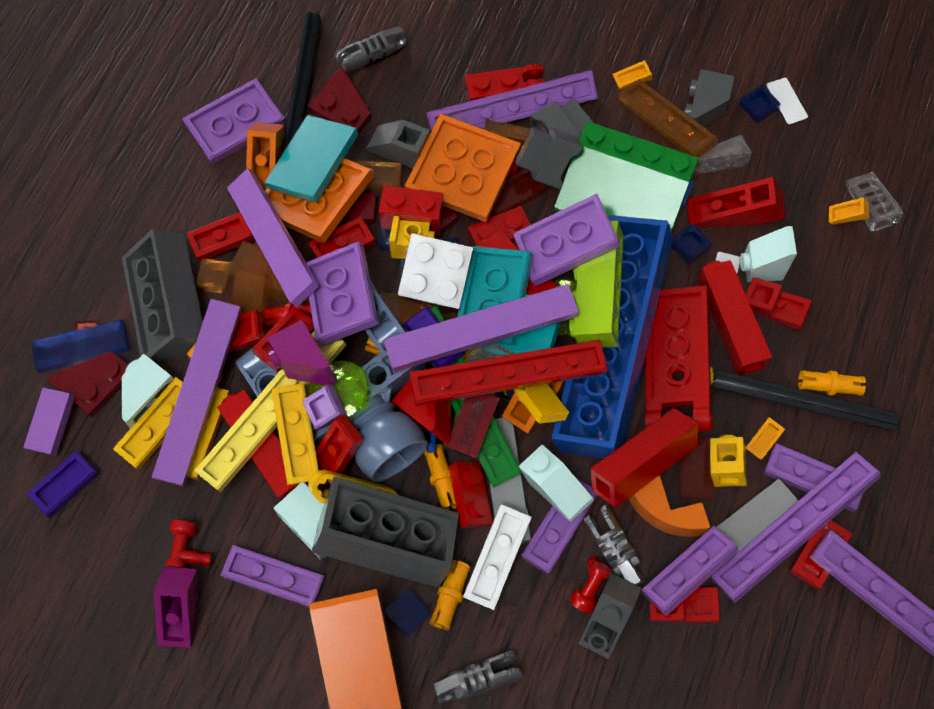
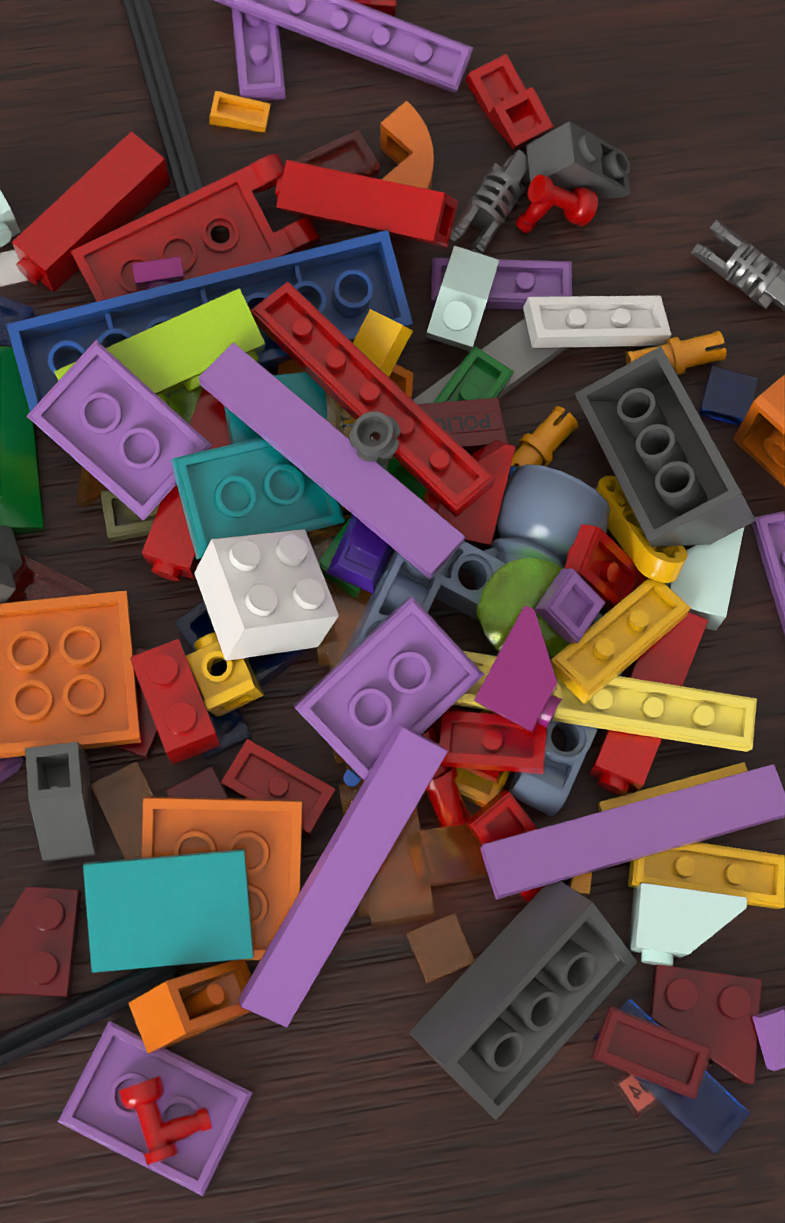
camera: 125 degrees left, 5 degrees up
(94, 337) = (651, 1052): none -> dark red tile
(215, 109) = (160, 1135): none -> red piece
(219, 237) = (375, 979): red plate -> none
(470, 495) = (540, 398): red plate -> none
(479, 344) = (370, 424): none -> dark grey plate
(506, 222) = (111, 568): red plate -> none
(663, 320) = (157, 272): none -> magenta plate
(689, 570) = (471, 103): medium lavender tile -> none
(722, 470) = (301, 113): yellow brick -> none
(757, 514) = (375, 85): light grey tile -> none
(781, 307) = (36, 173): red slope -> none
(831, 382) = (118, 67): light orange pin -> none

